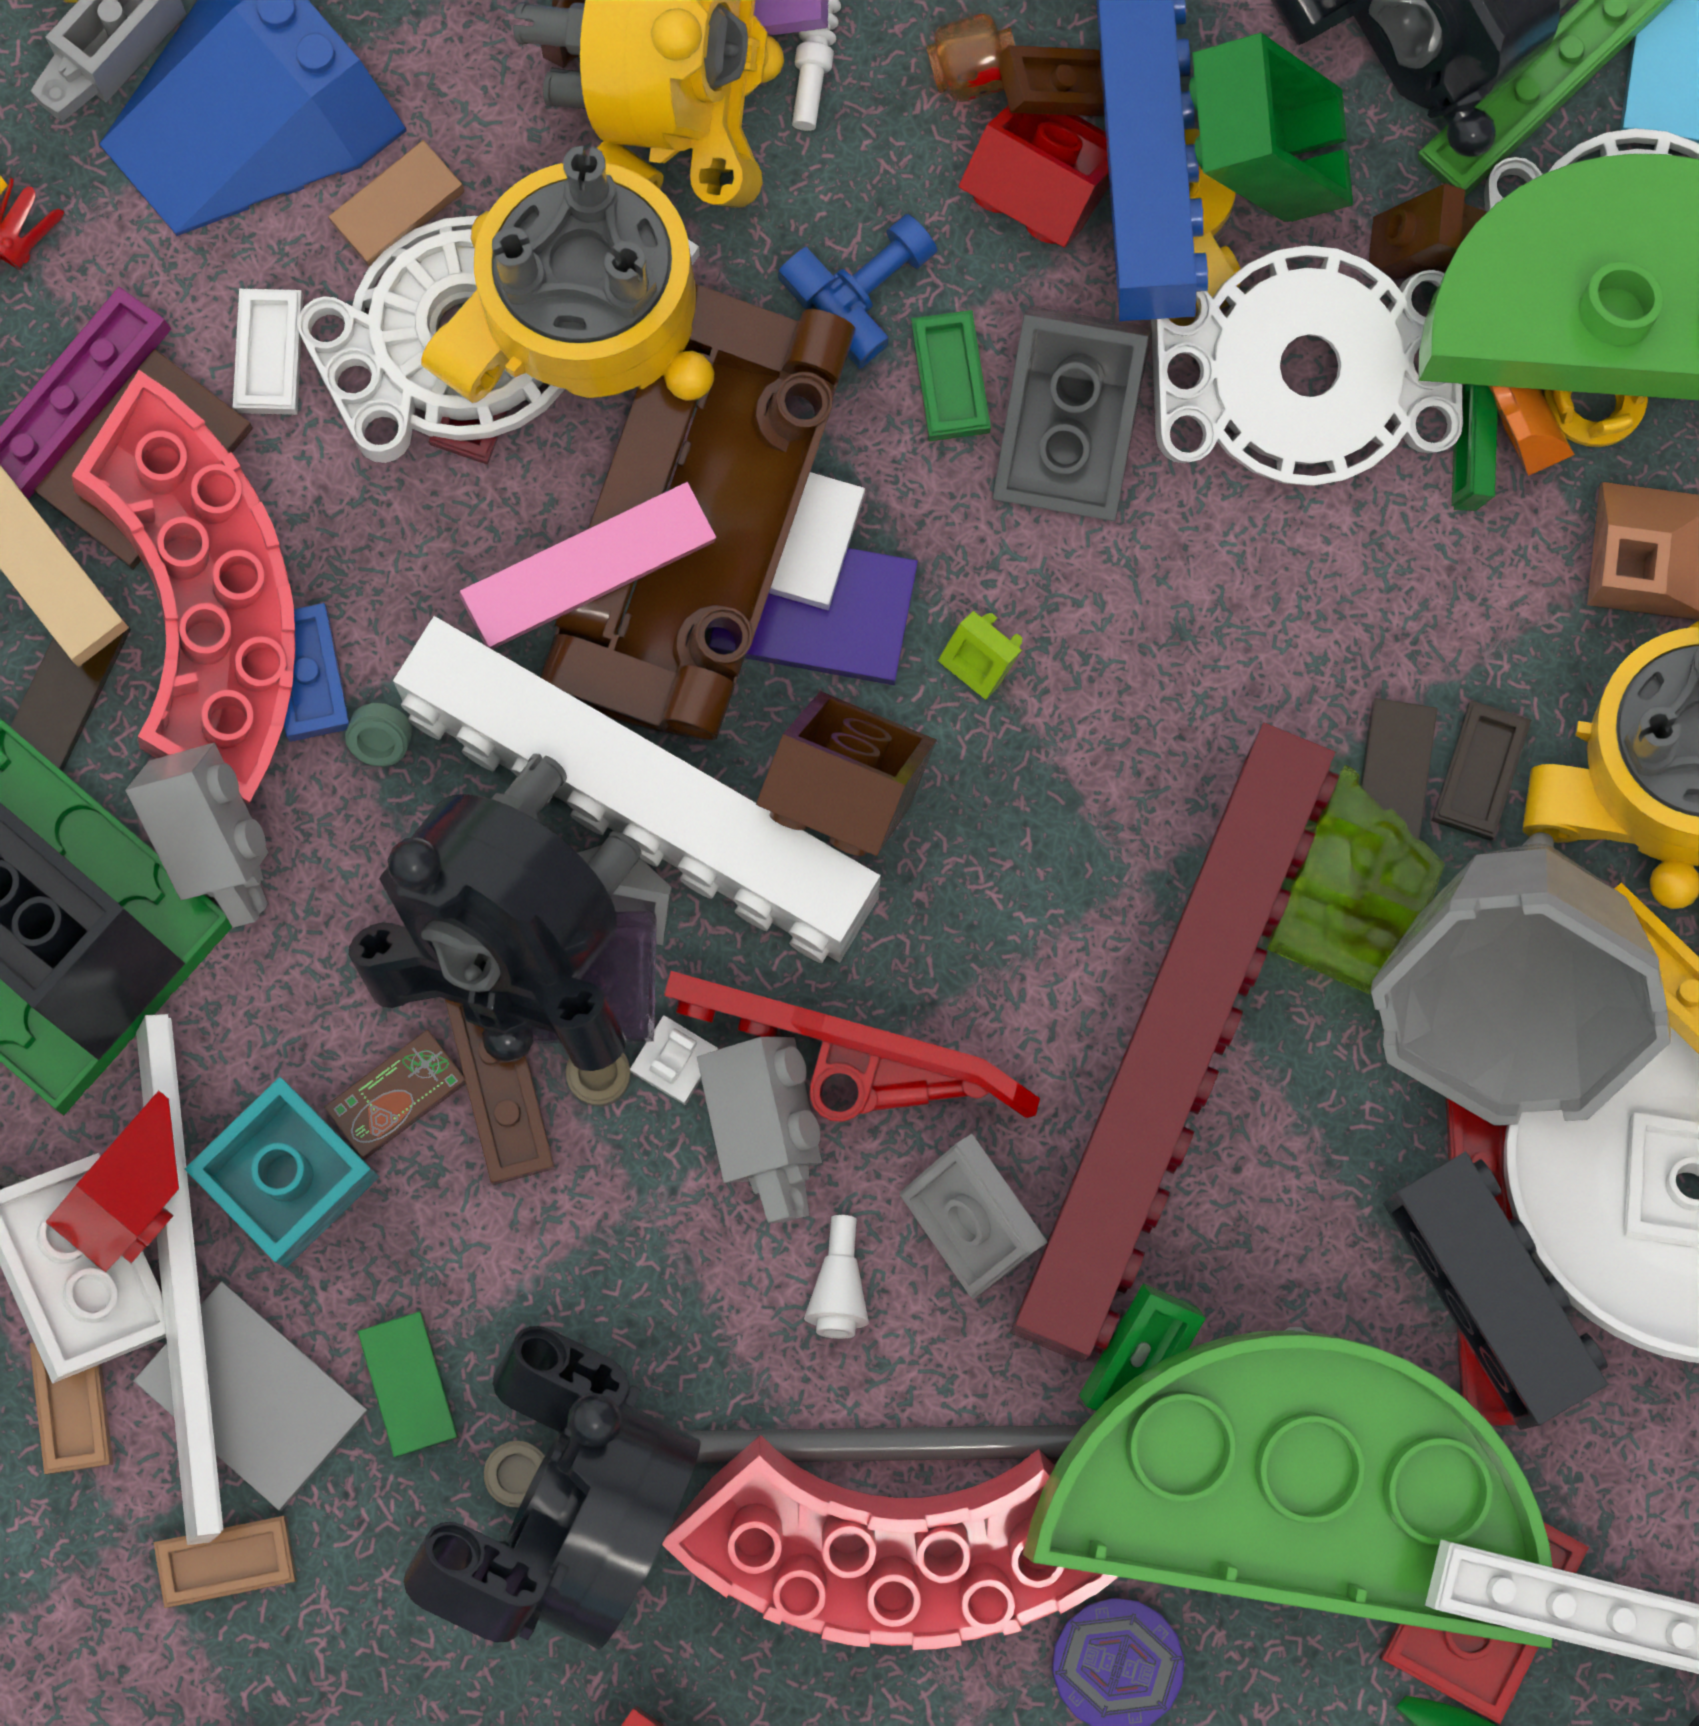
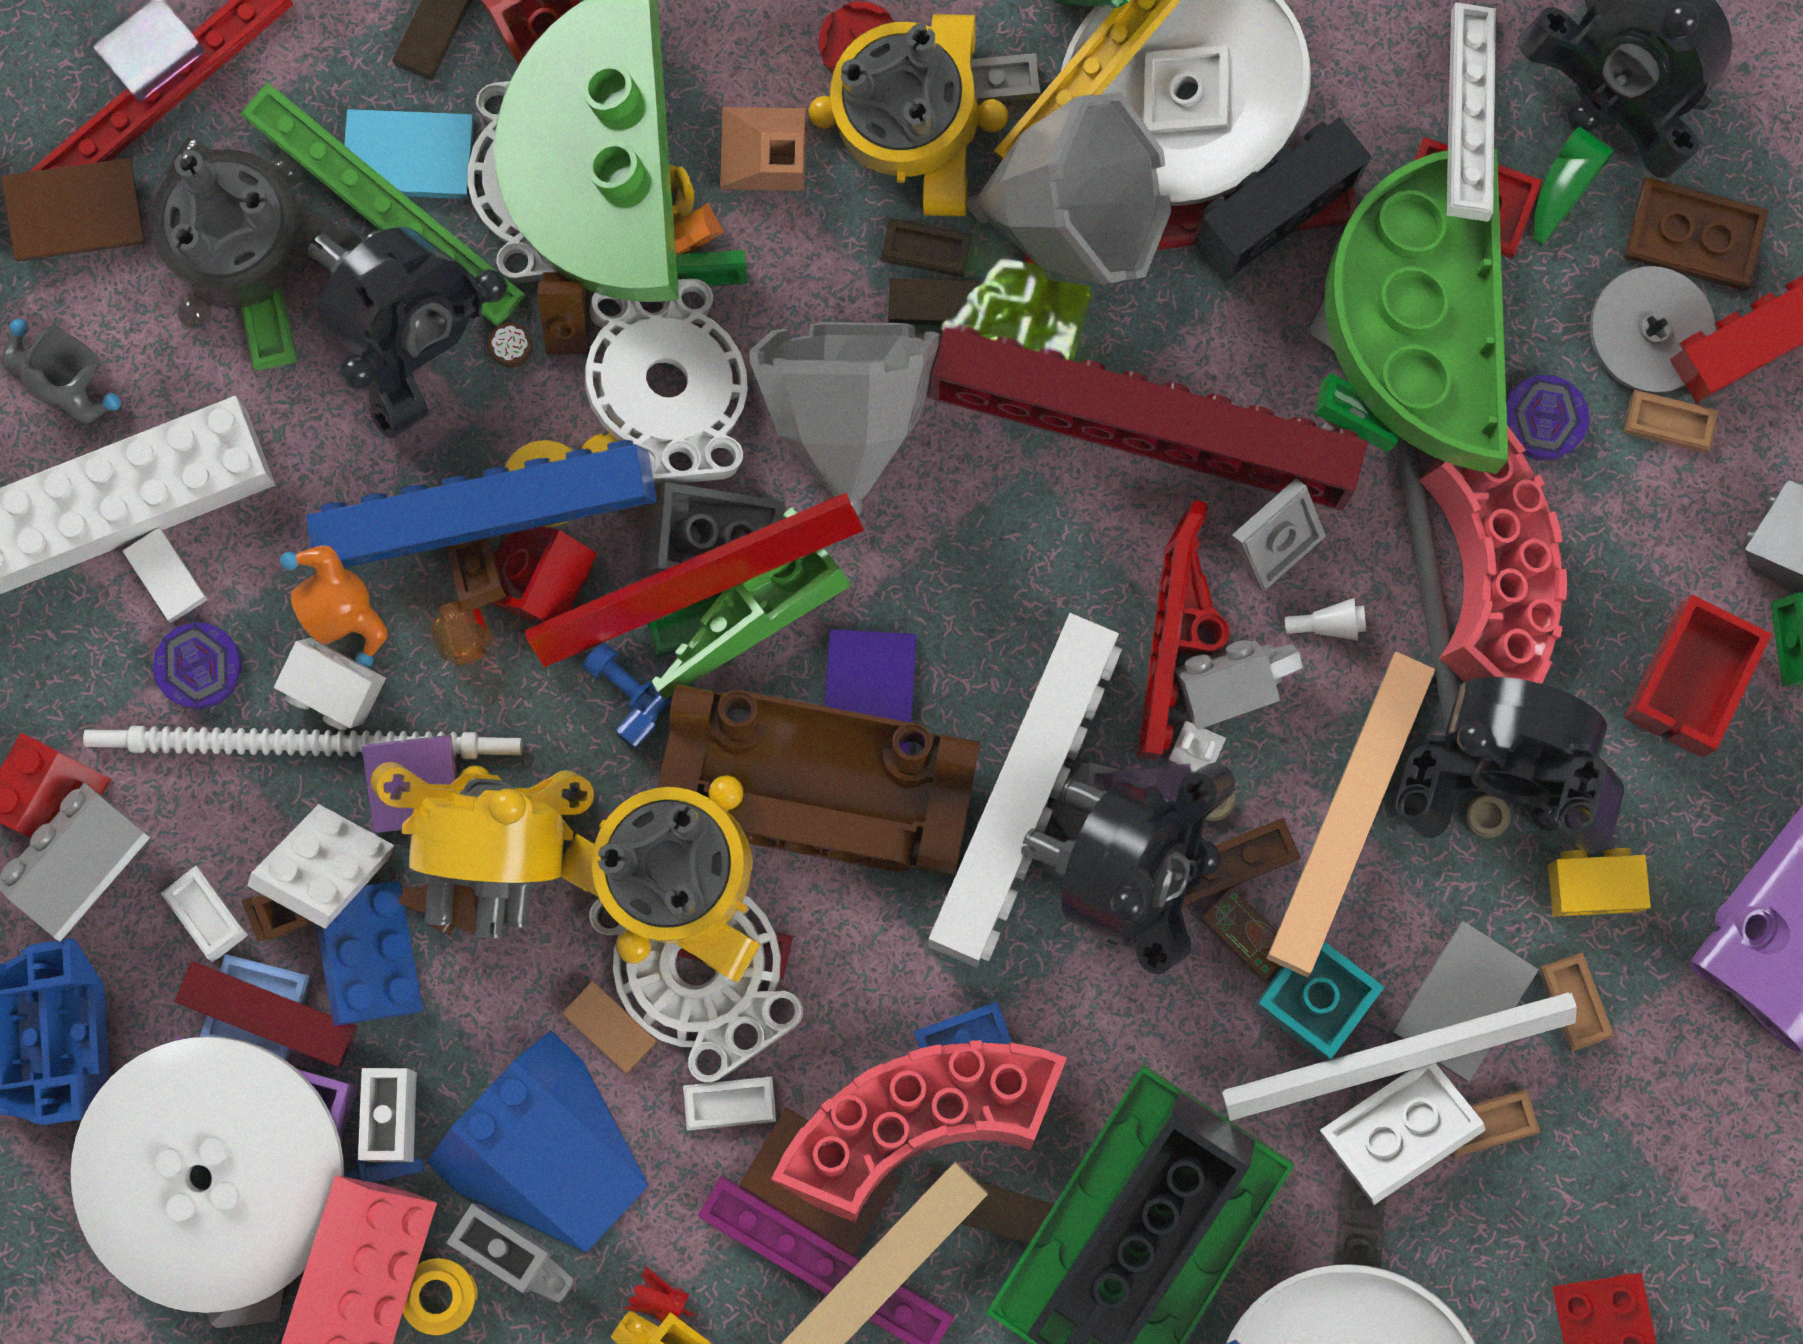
camera: 95 degrees left, 0 degrees up
(124, 1193) = (1349, 1097): red slope -> none
(203, 830) = (1090, 1087): light grey hinge -> none
(378, 734) = (999, 981): sand green tile -> none
(382, 1628) = (1598, 883): none -> yellow brick
(408, 1384) = (1440, 897): green tile -> none
(541, 1260) = (1350, 815): none -> light nougat tile
(587, 566) = (871, 845): bright pink tile -> none
(818, 541) = (828, 690): white tile -> none
(845, 774) = (999, 646): reddish brown brick -> none
(980, 653) = (891, 577): lime tile -> none
(986, 495) = (752, 613): none -> bright green wedge
(1004, 371) = (694, 580): none -> red tile
(1254, 602) = (845, 396): none -> light grey piece
(1260, 112) = (499, 430): green piece -> none
(1391, 168) = (510, 345): none -> tile

